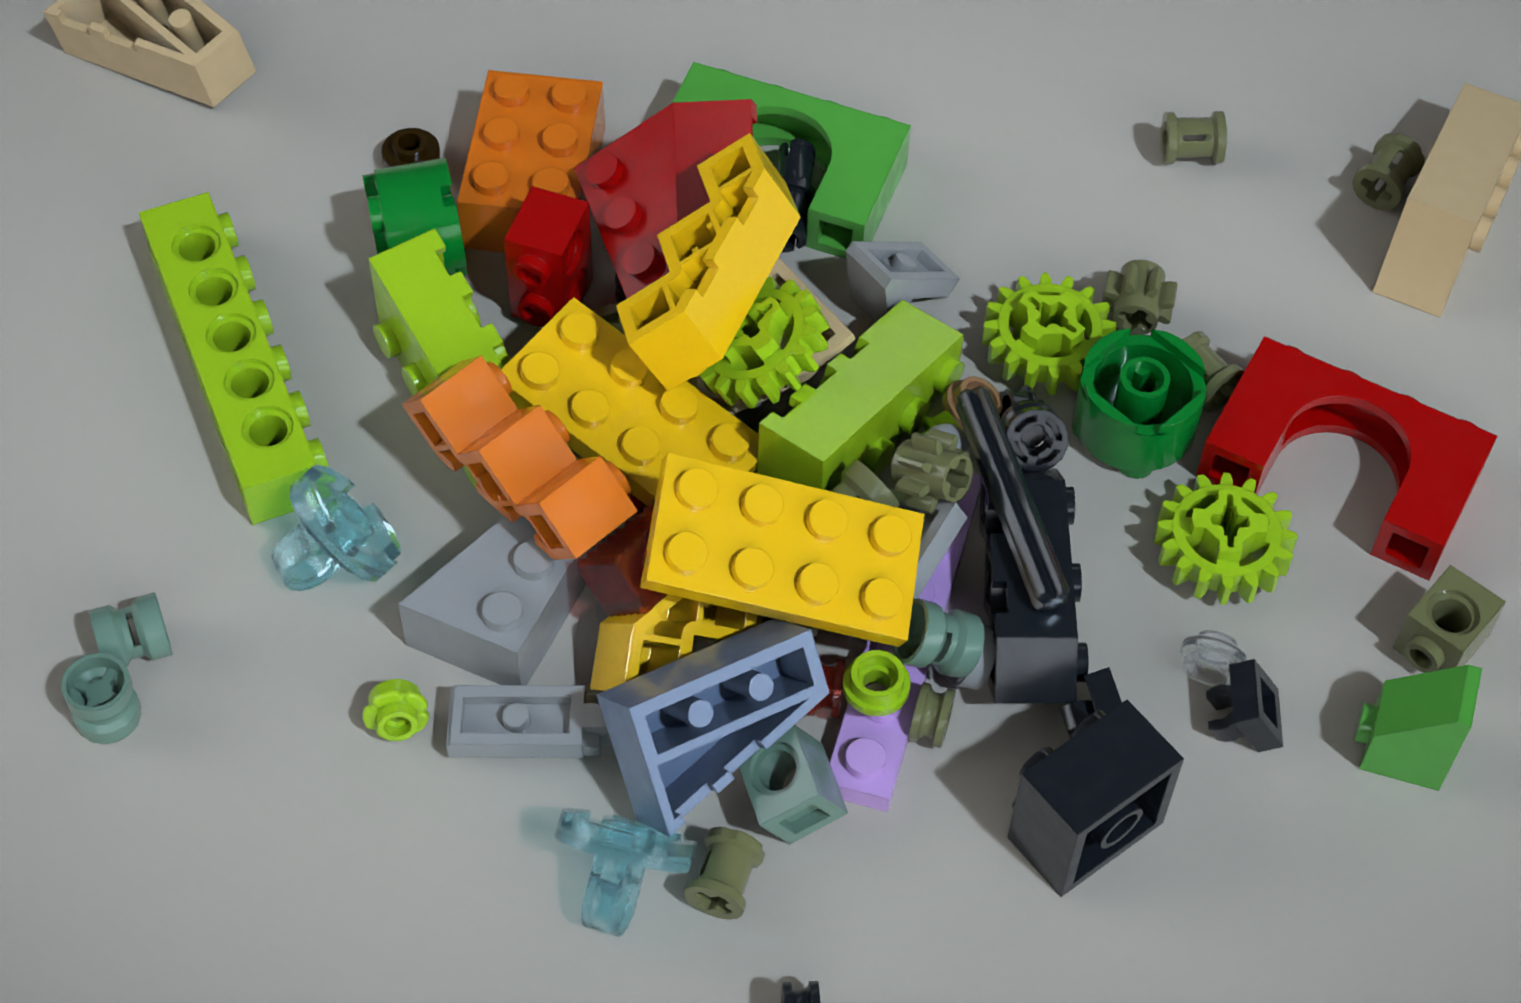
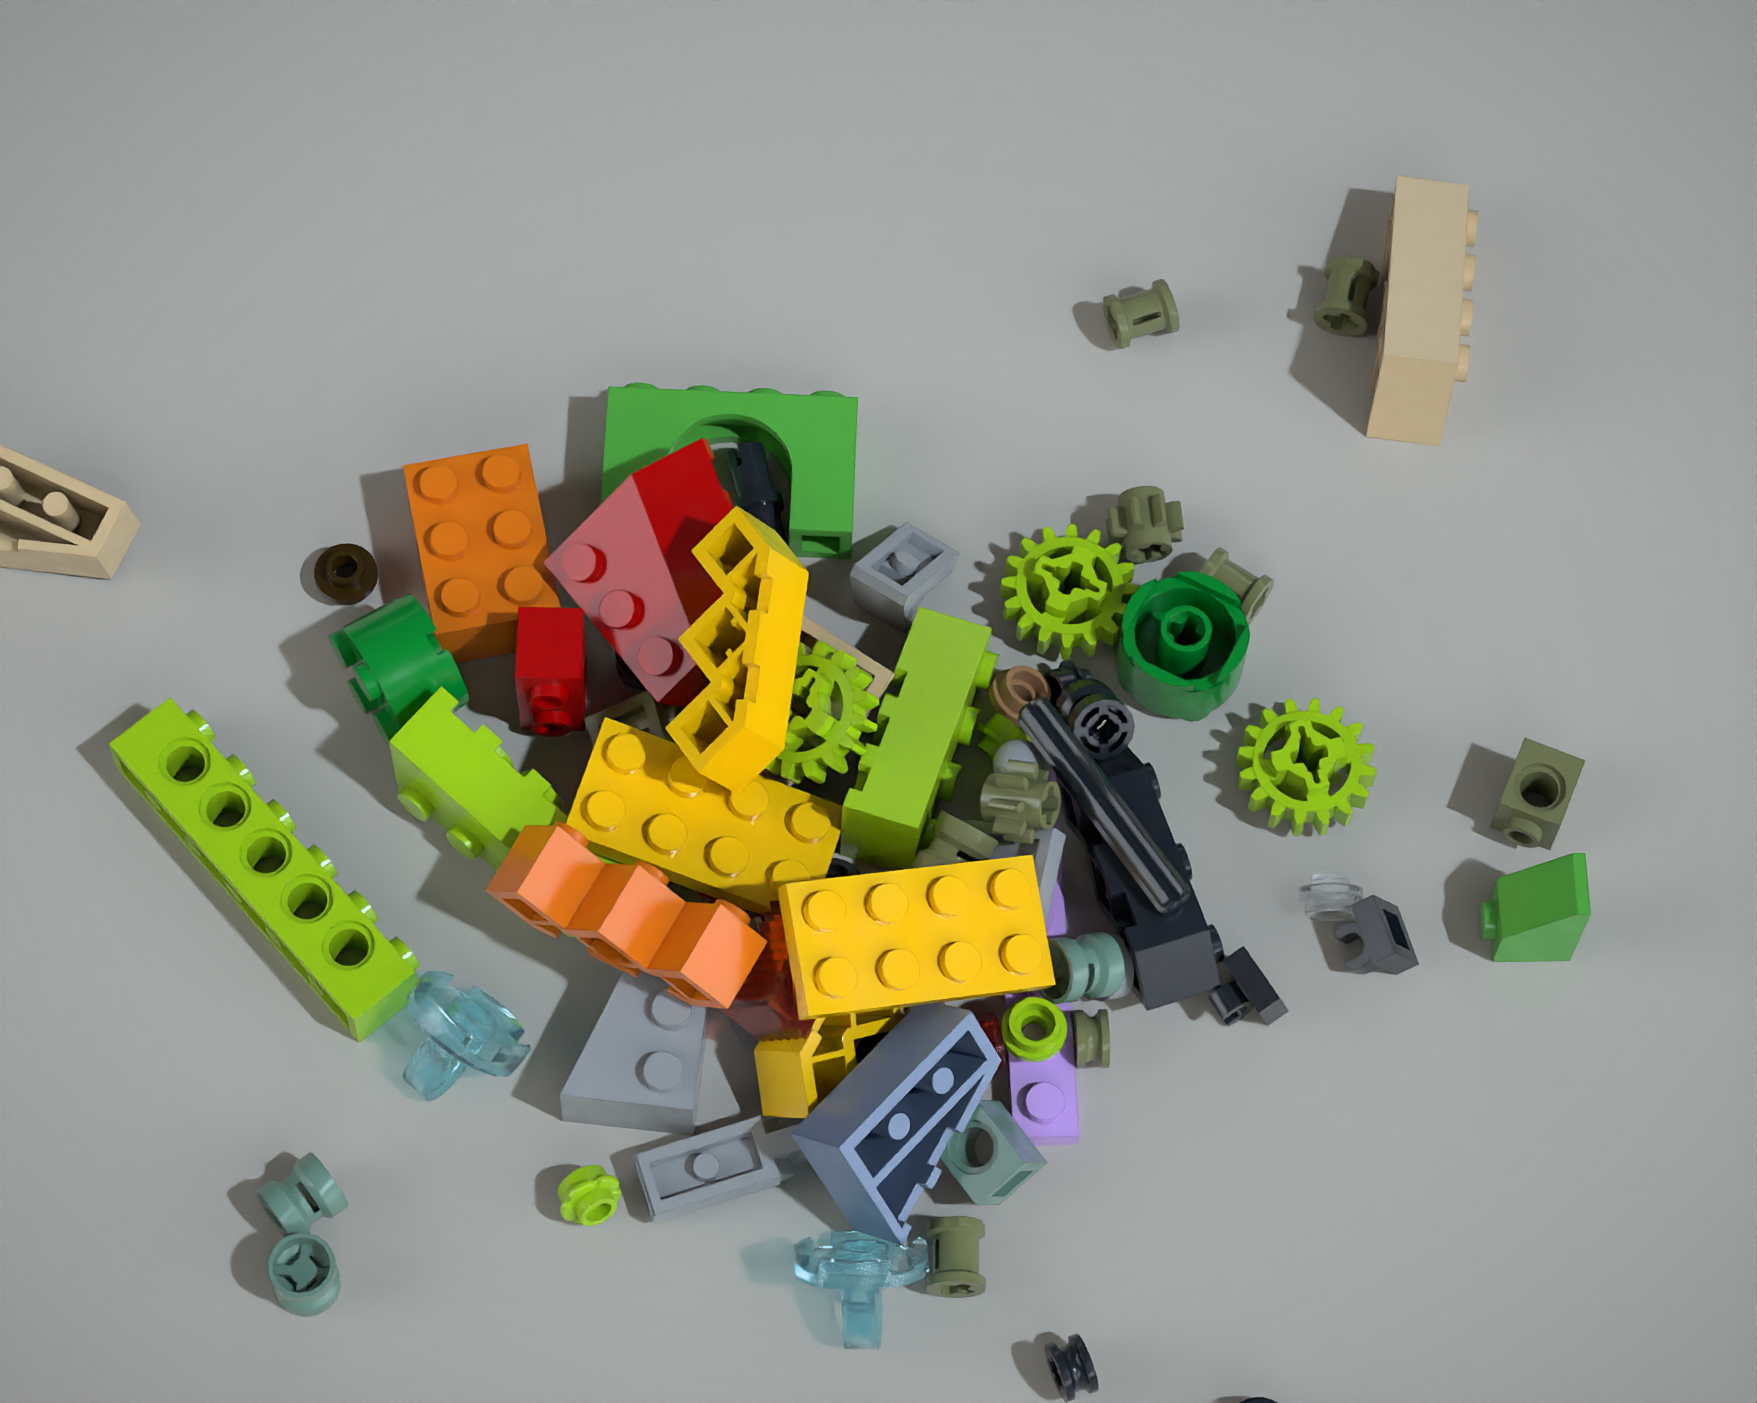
camera: 20 degrees left, 10 degrees up
(1093, 795) = (1268, 1080): black brick -> none
(1298, 395) = (1472, 612): red arch -> none

